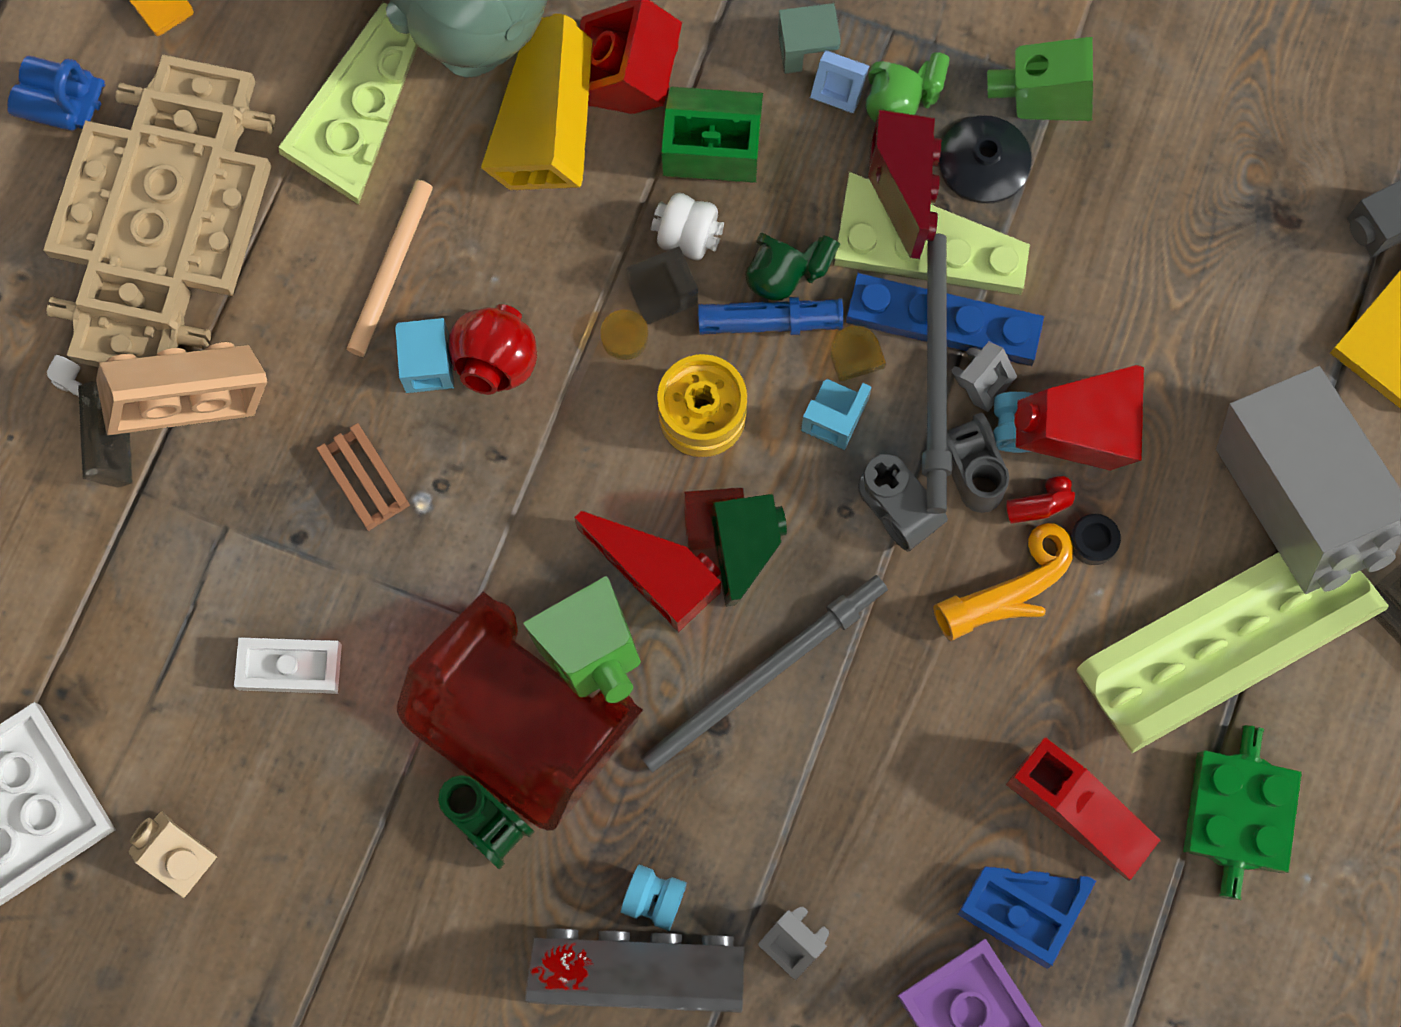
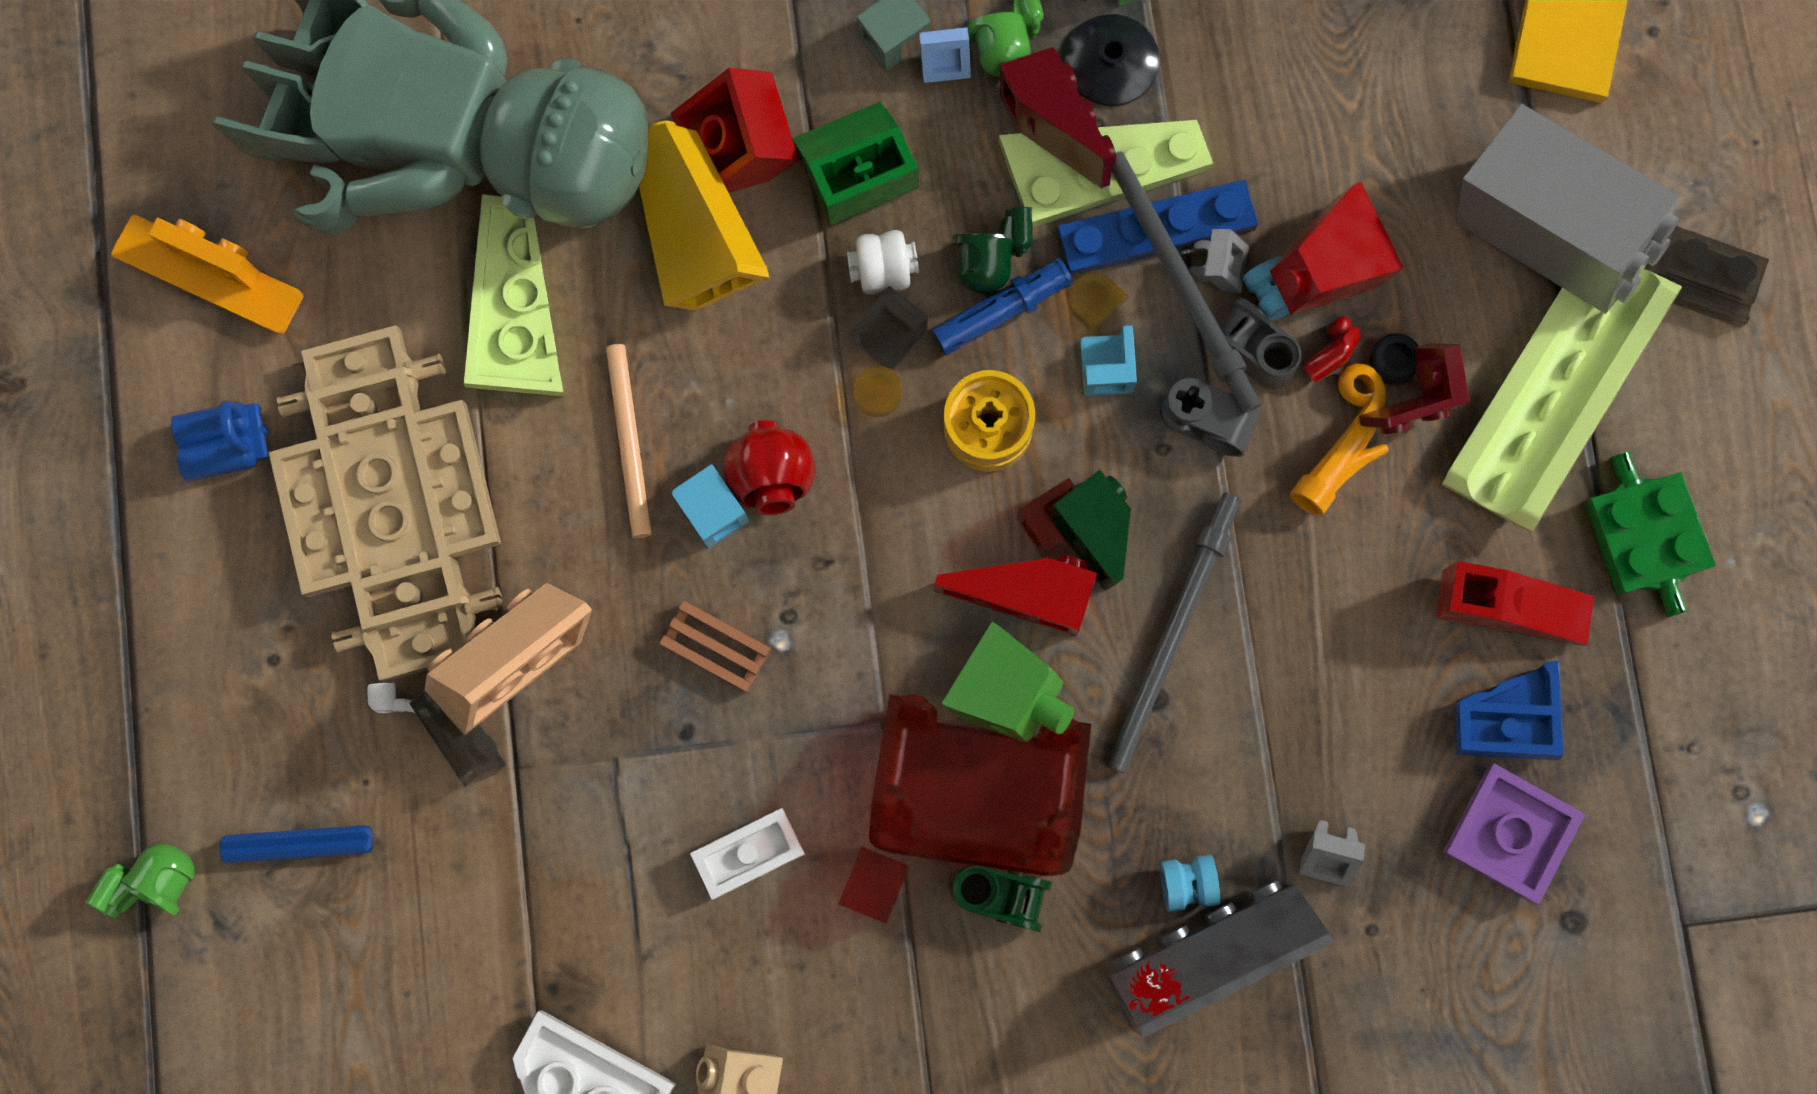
camera: 25 degrees left, 5 degrees up
(379, 750) = (874, 885): none -> clear red panel
(1123, 579) = (1442, 386): none -> dark red bracket

